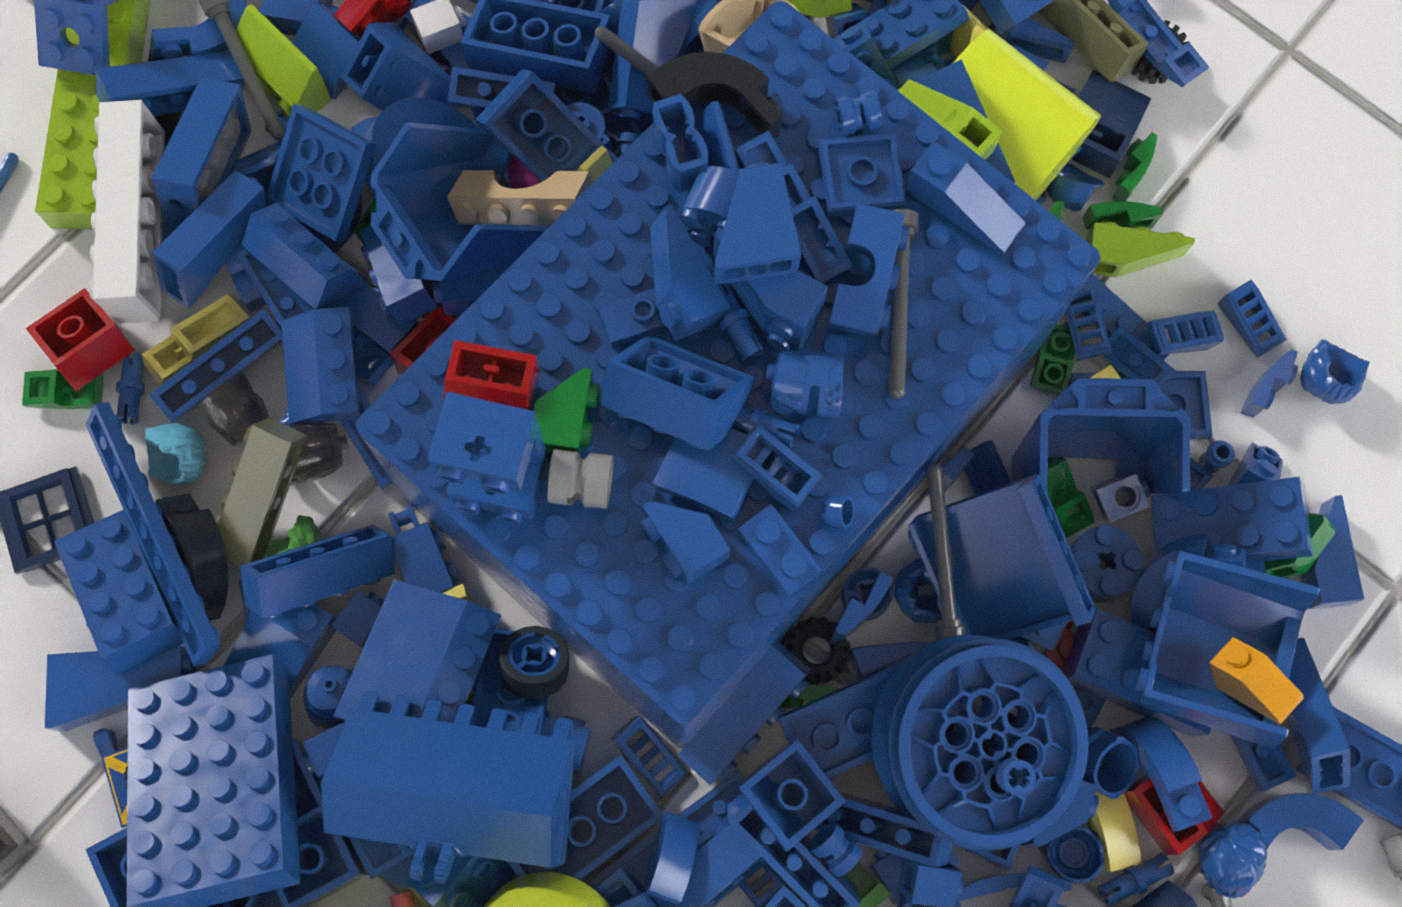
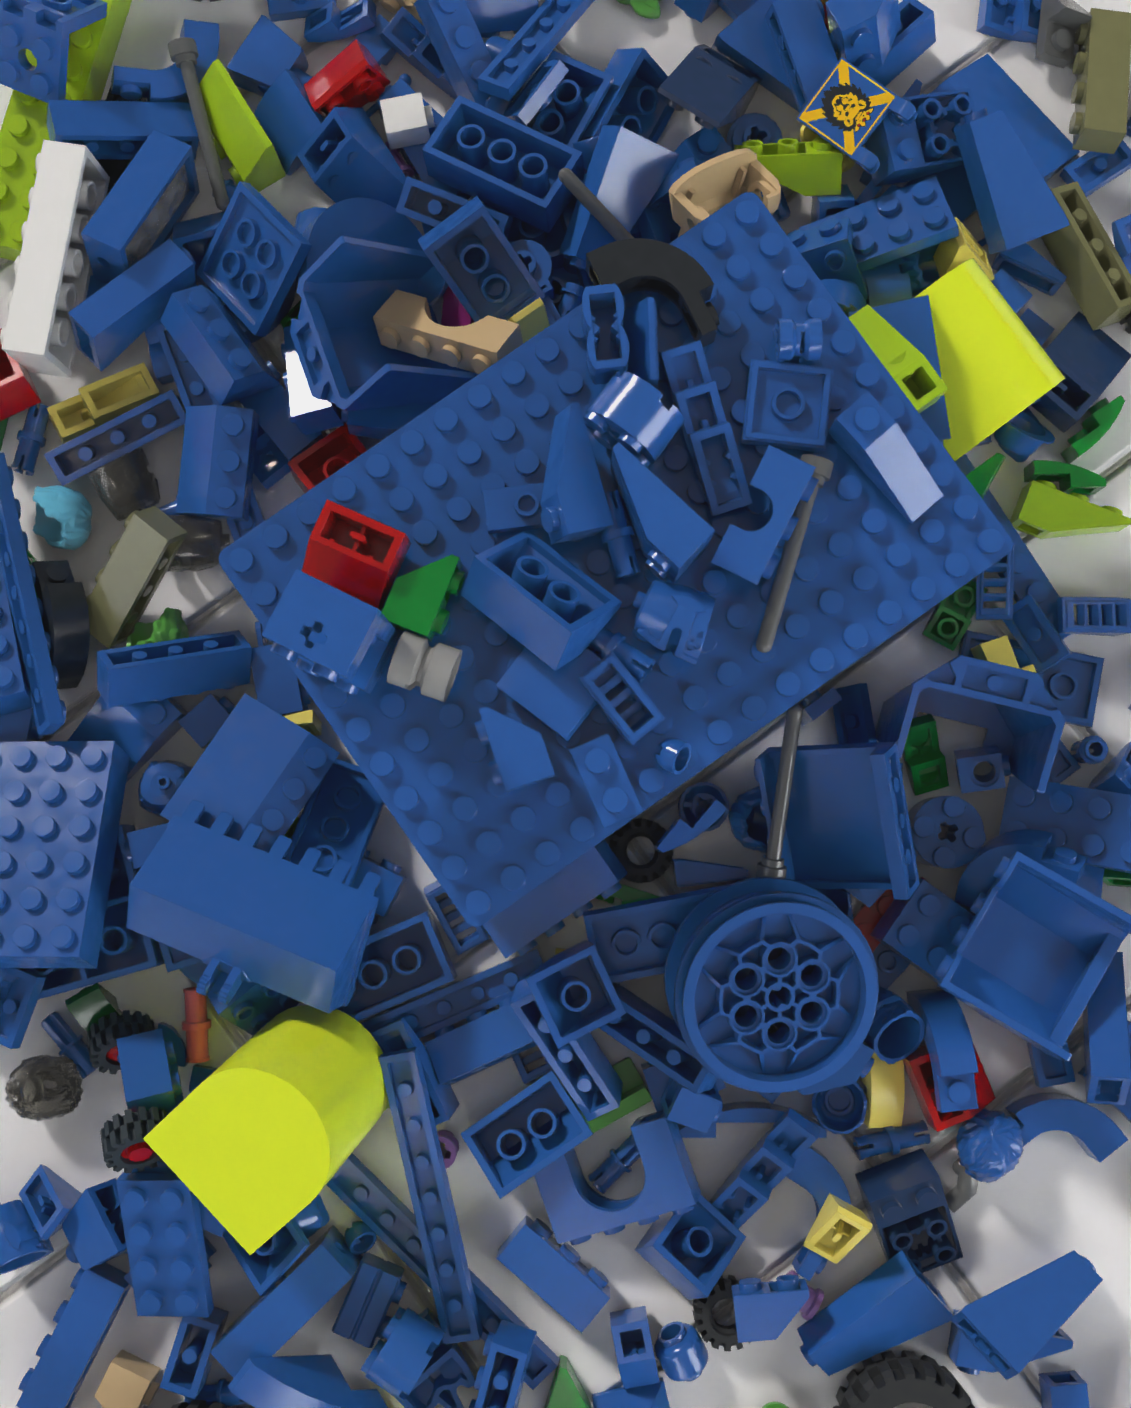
camera: 20 degrees right, 10 degrees up
(530, 677) = (357, 819): wheel -> none
(672, 863) = (450, 1027): blue slope -> none
(758, 229) = (657, 453): blue slope -> none
(835, 849) = (608, 1053): blue wheel -> none
(1028, 776) = (799, 1022): blue bush -> none
(1254, 681) = (1057, 991): light orange slope -> none

